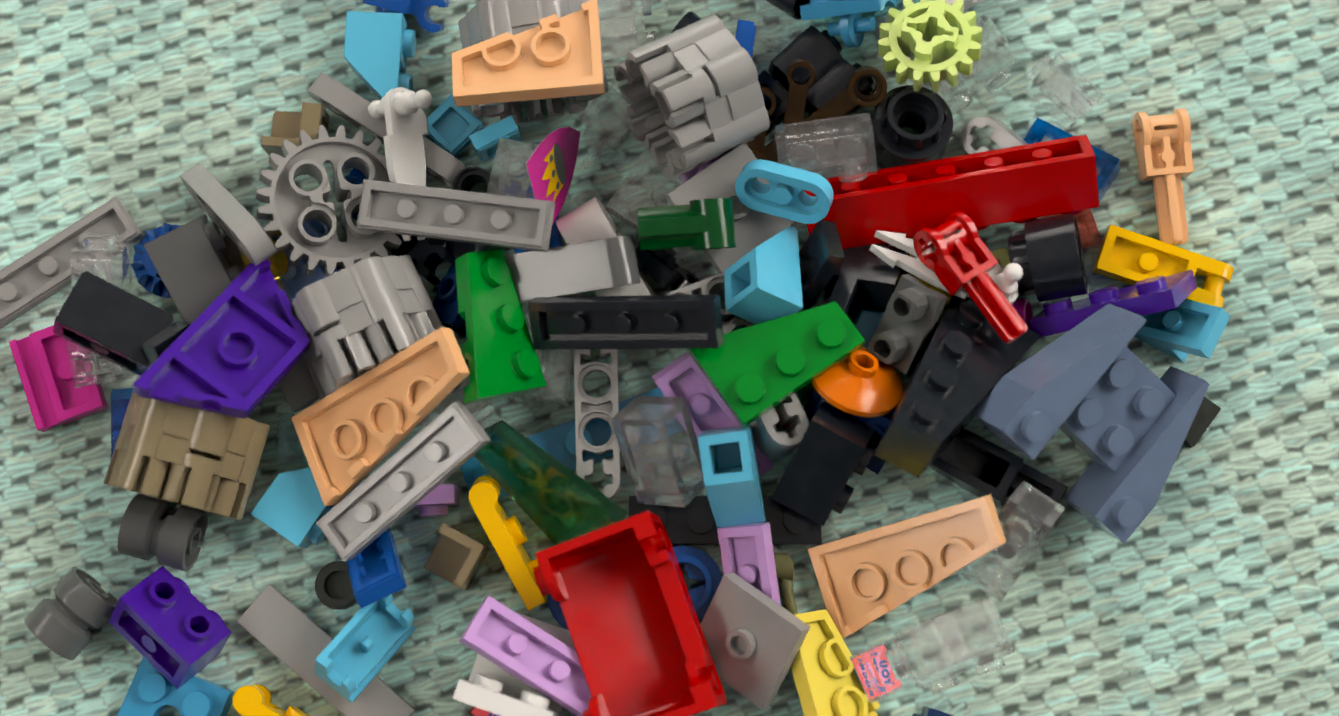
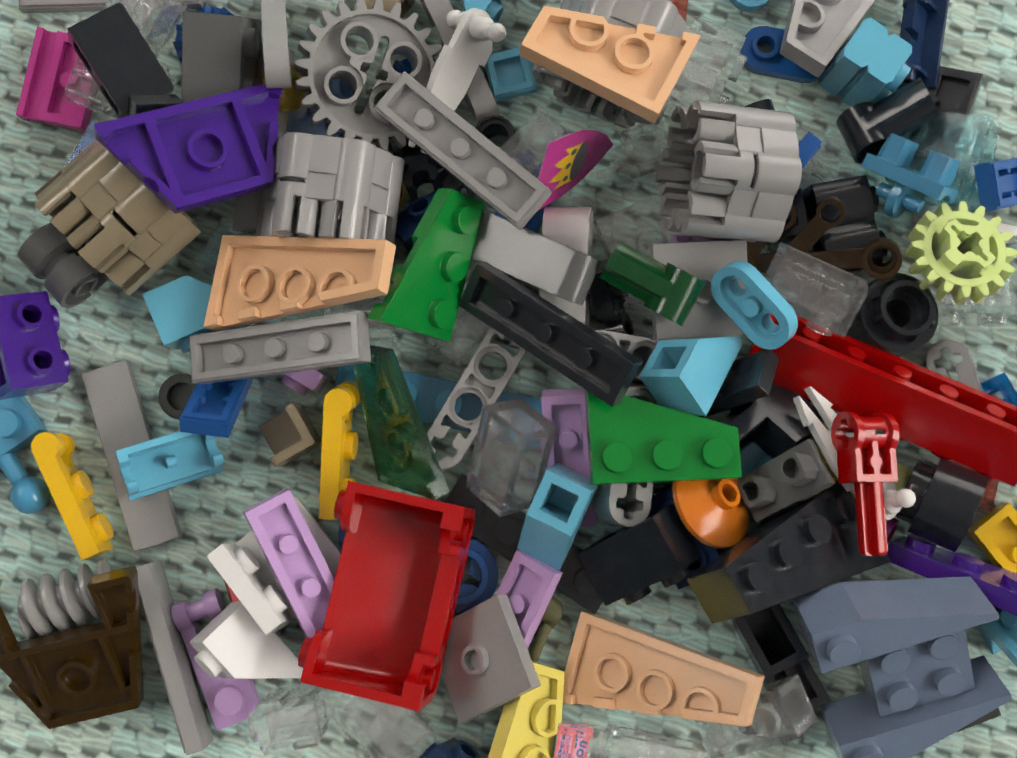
camera: 25 degrees right, 5 degrees up
(486, 140) = (531, 101): medium azure tile -> none

